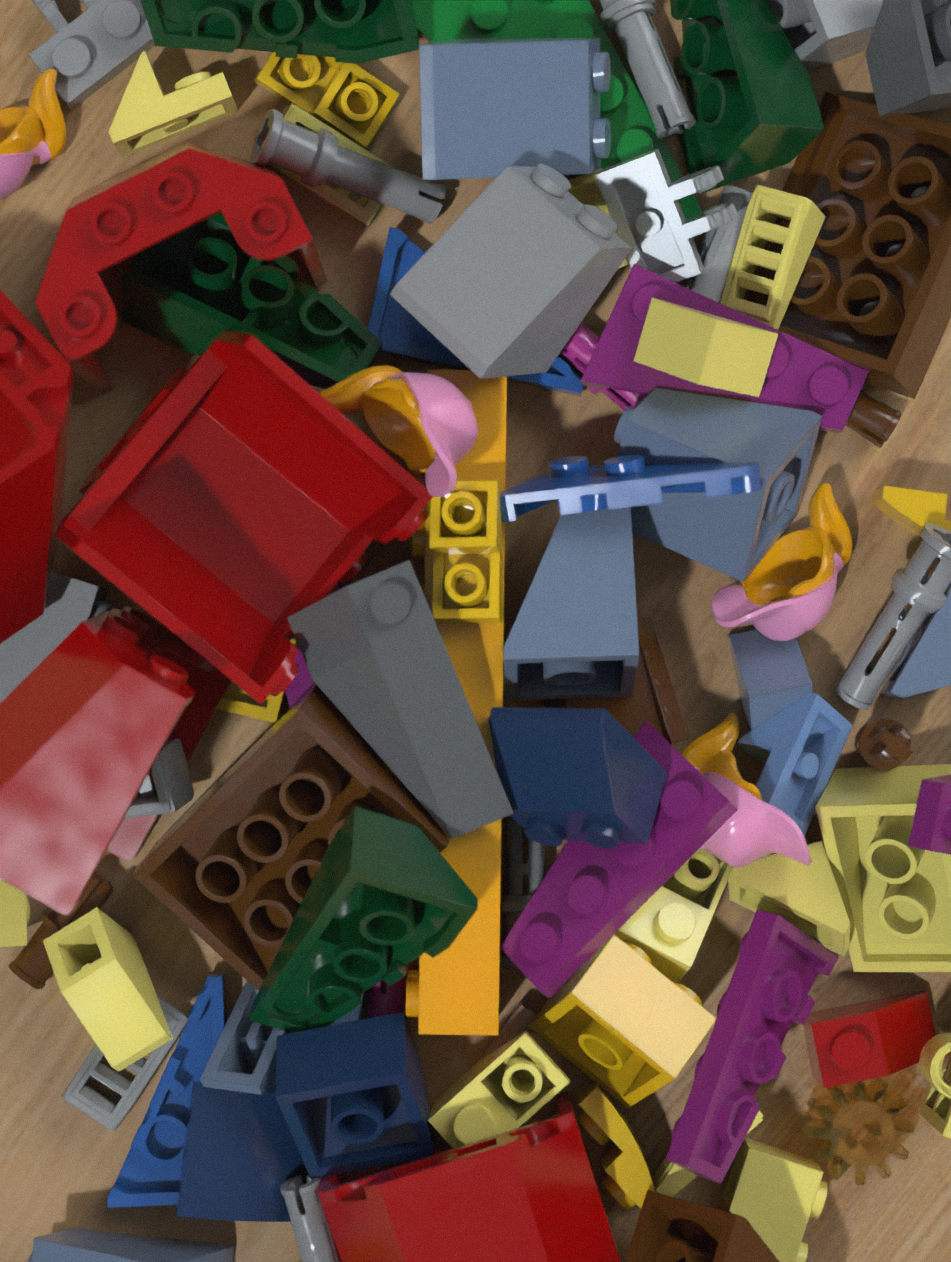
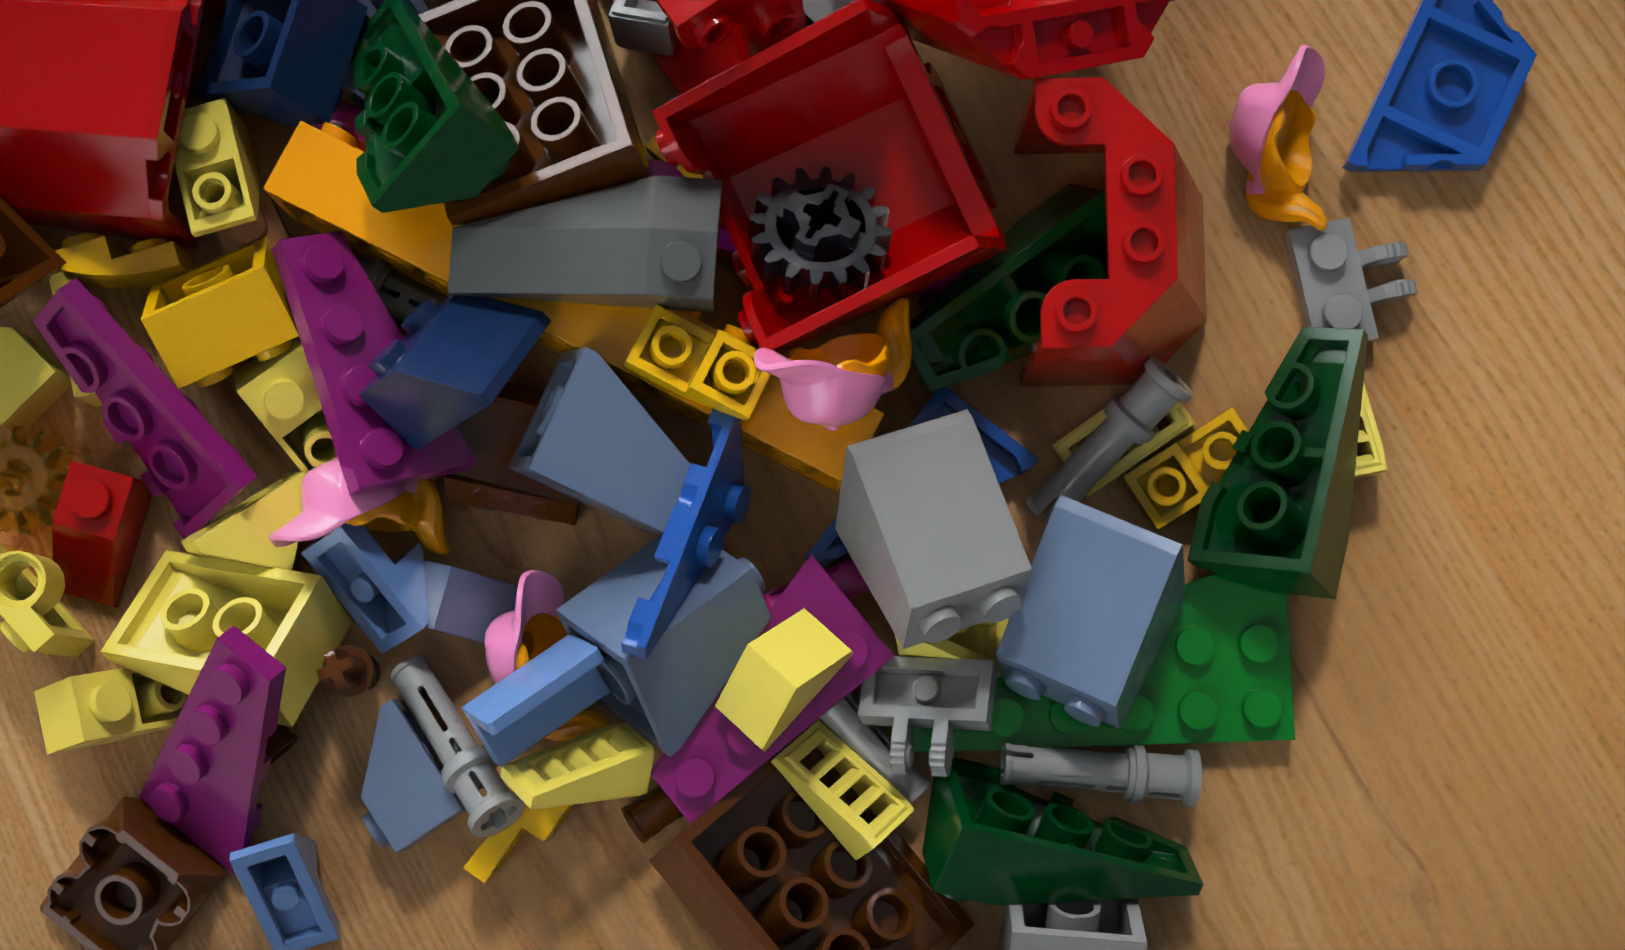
camera: 115 degrees right, 5 degrees down
(151, 117) = (1244, 298): light yellow slope -> none
(286, 539) = (825, 231): none -> black gear
(829, 557) = (537, 698): none -> medium blue panel
(853, 471) = (585, 769): none -> light yellow slope

